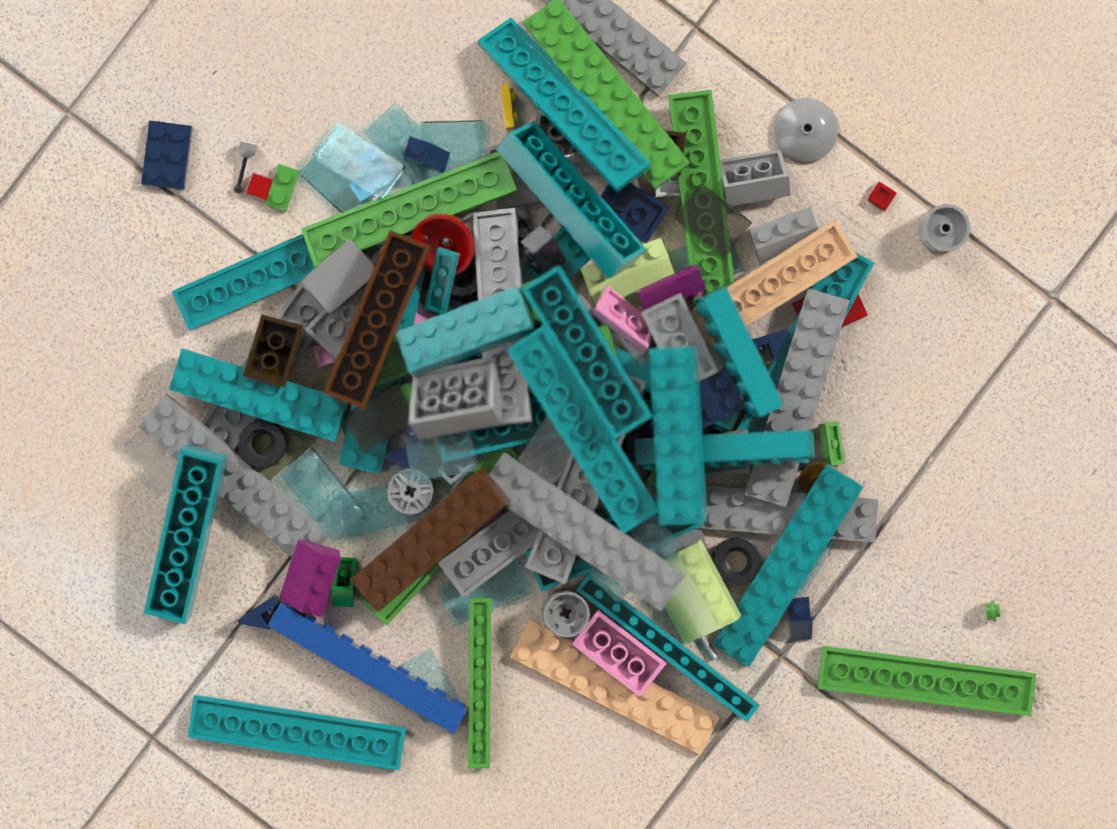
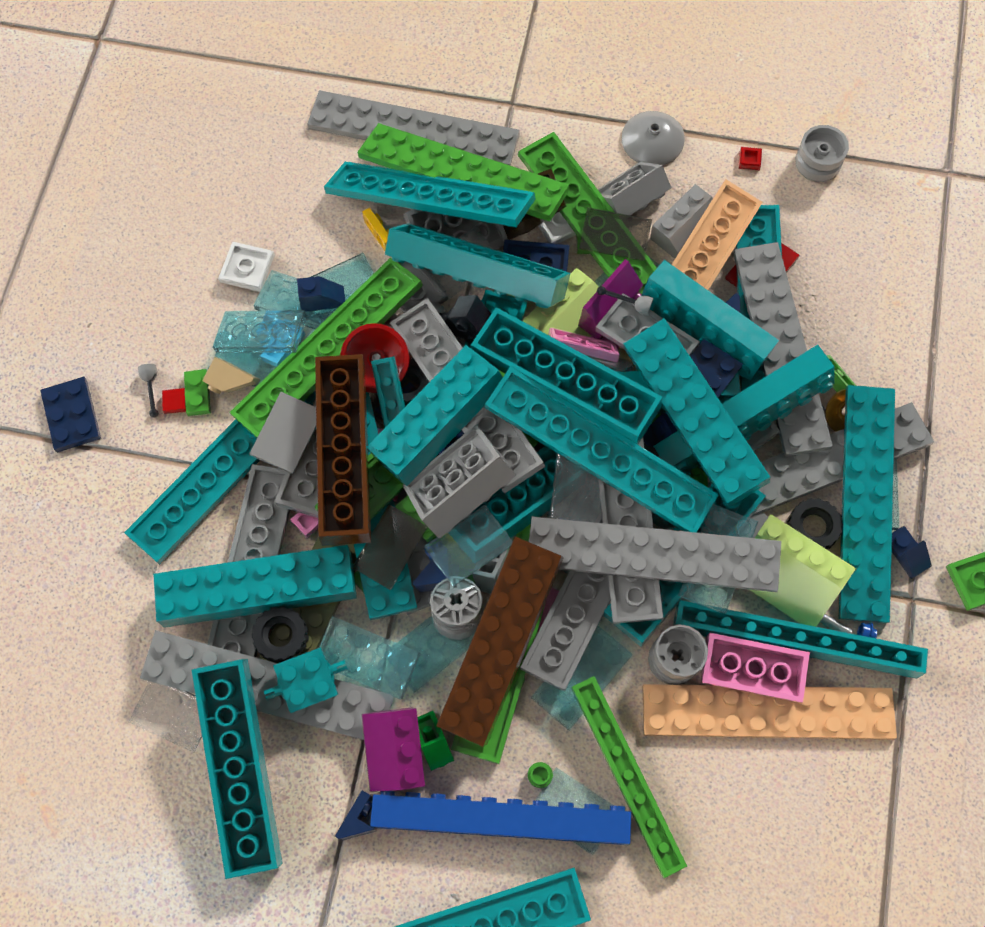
camera: 25 degrees left, 20 degrees down
(266, 493) = (305, 680): none -> teal plate
(274, 351) = (251, 530): dark brown slope -> none
(315, 191) = (227, 377): none -> tan slope
(375, 84) = (246, 266): none -> white plate
(414, 648) = (540, 775): none -> bright green plate
(687, 315) = (642, 303): none -> hinge
(725, 666) = (867, 630): none -> blue plate

